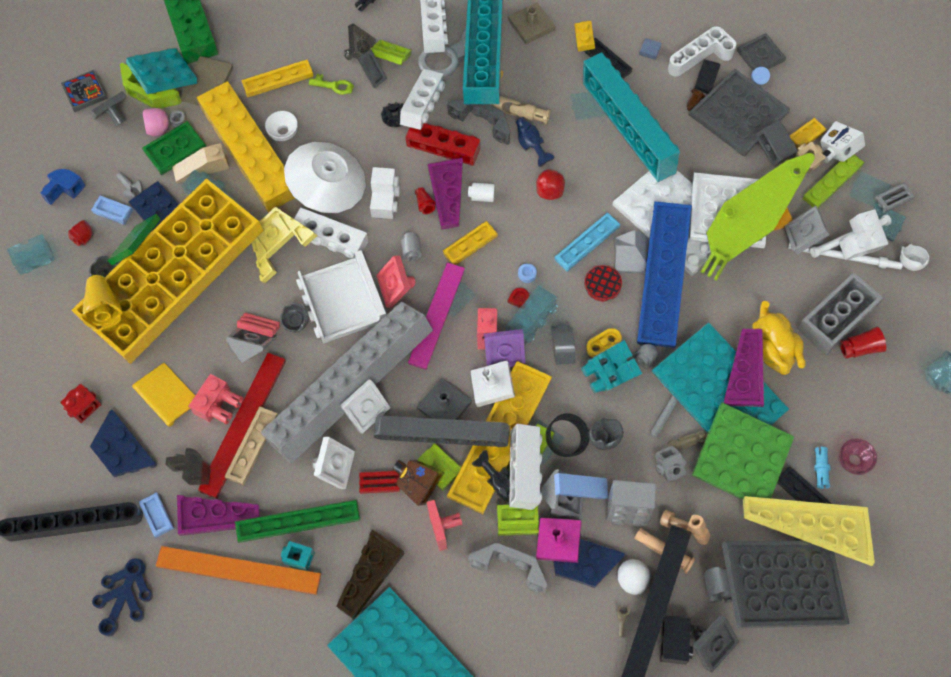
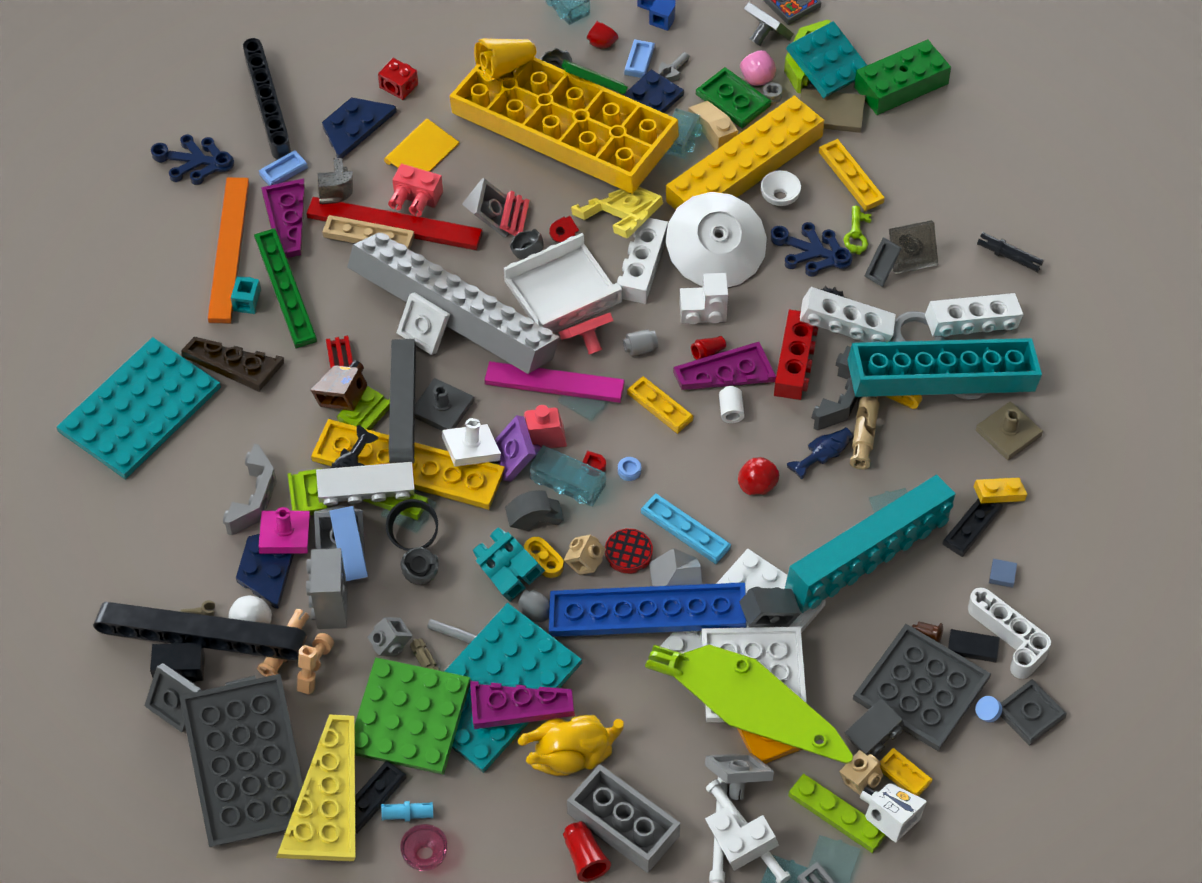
camera: 80 degrees right, 10 degrees down
(287, 287) = (563, 229): none -> red piece
(334, 463) = (351, 305): white tile -> none
(342, 114) = (813, 249): none -> dark blue plant
(391, 52) = (916, 280): lime plate -> none
(441, 524) = (288, 410): coral tile -> none
(608, 311) = (585, 554): none -> tan brick
(679, 187) = (769, 607): none -> dark grey brick

